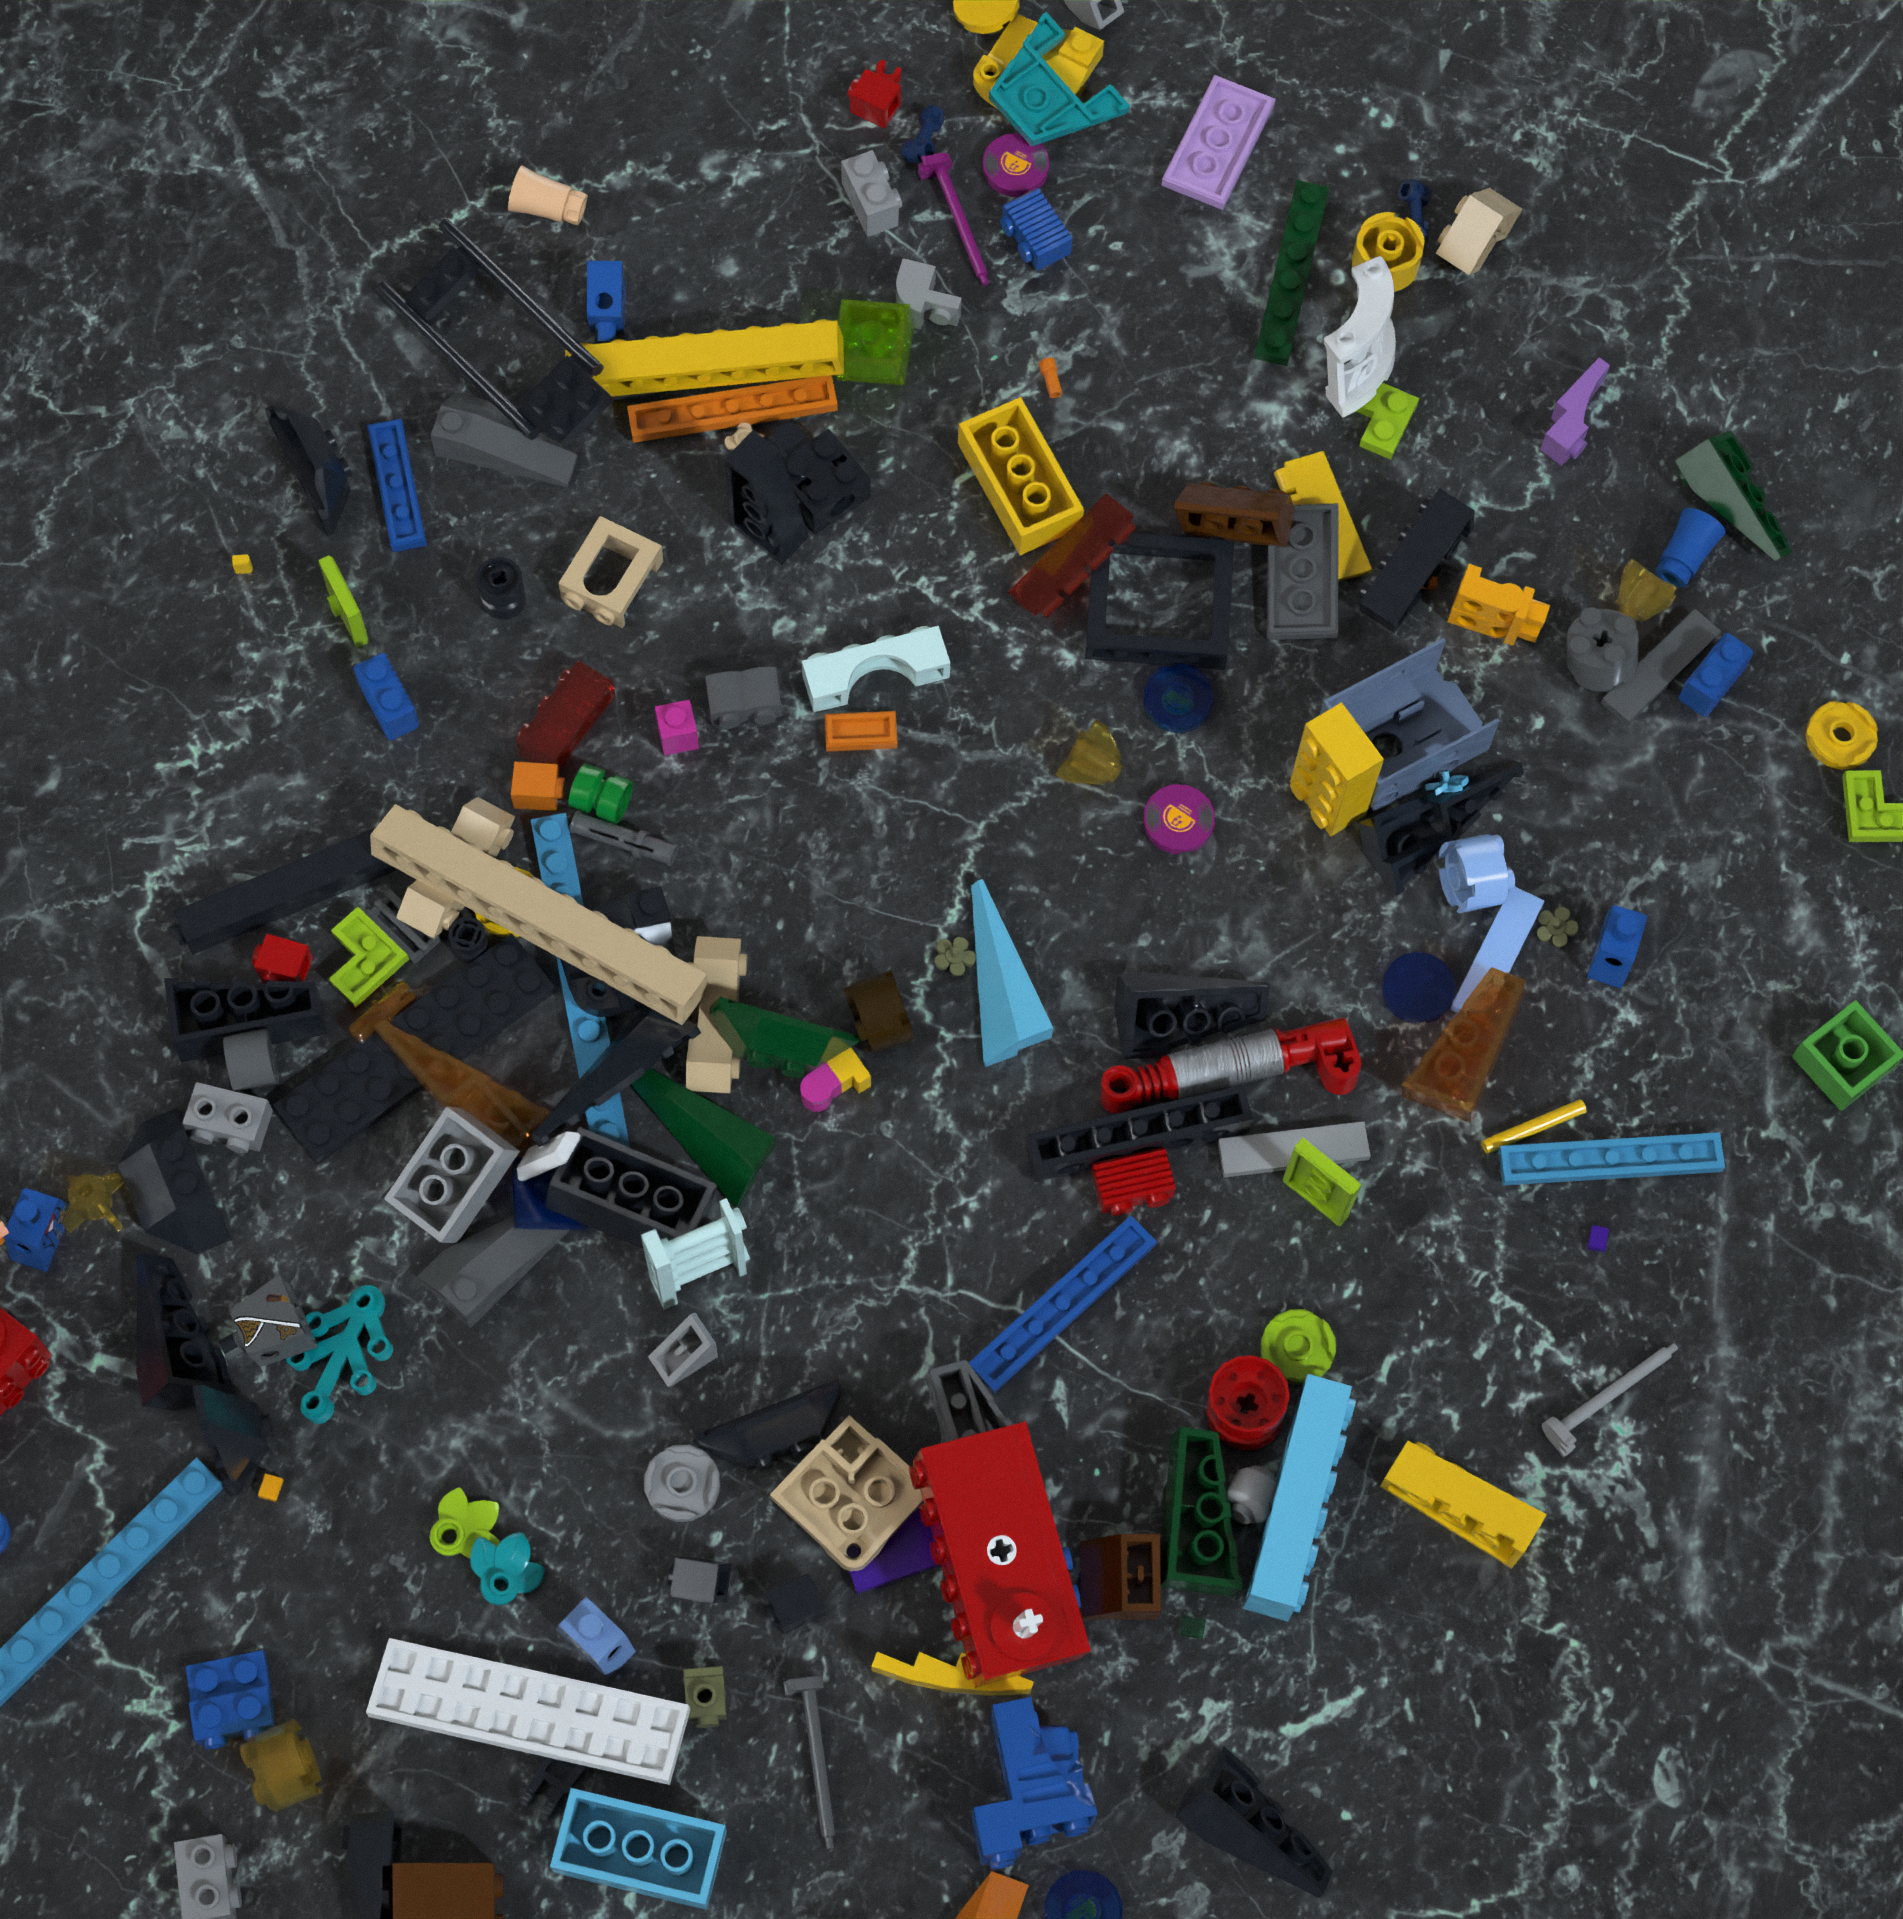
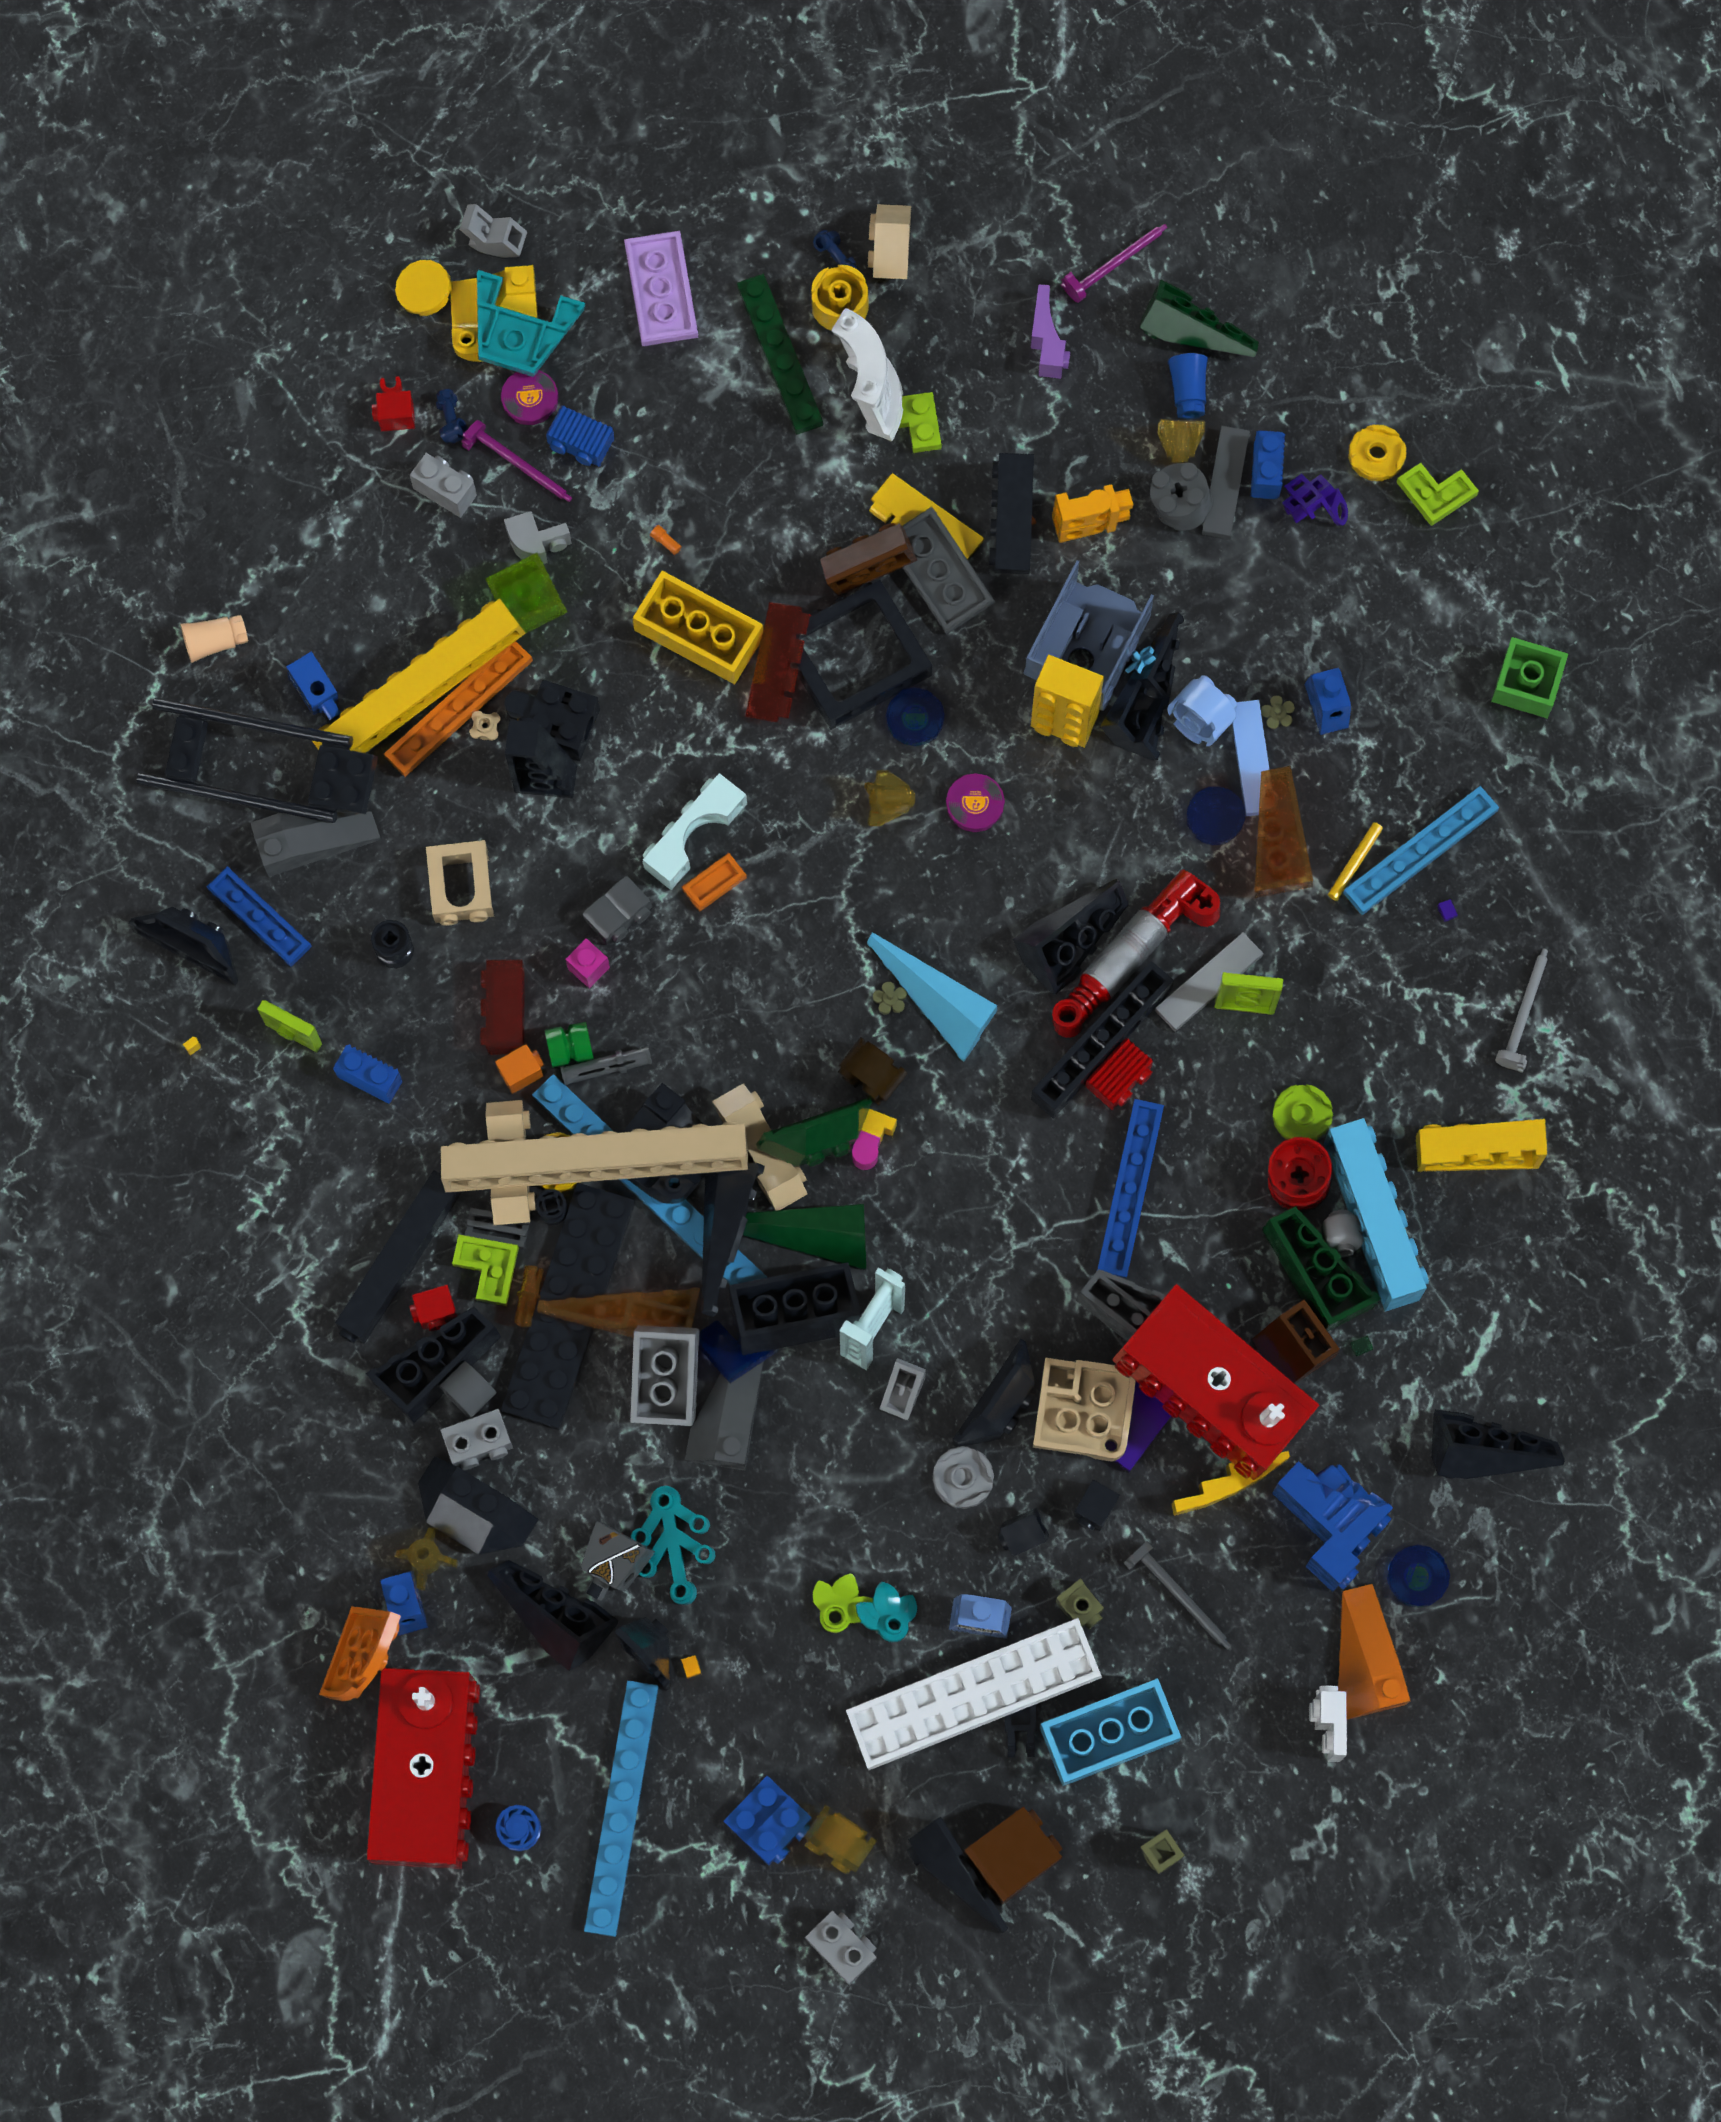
camera: 30 degrees left, 5 degrees up
(544, 1158) = (717, 1326): white tile -> none
(1636, 388) = (1077, 289): none -> magenta piece
(1745, 733) = (1324, 495): none -> dark purple piece

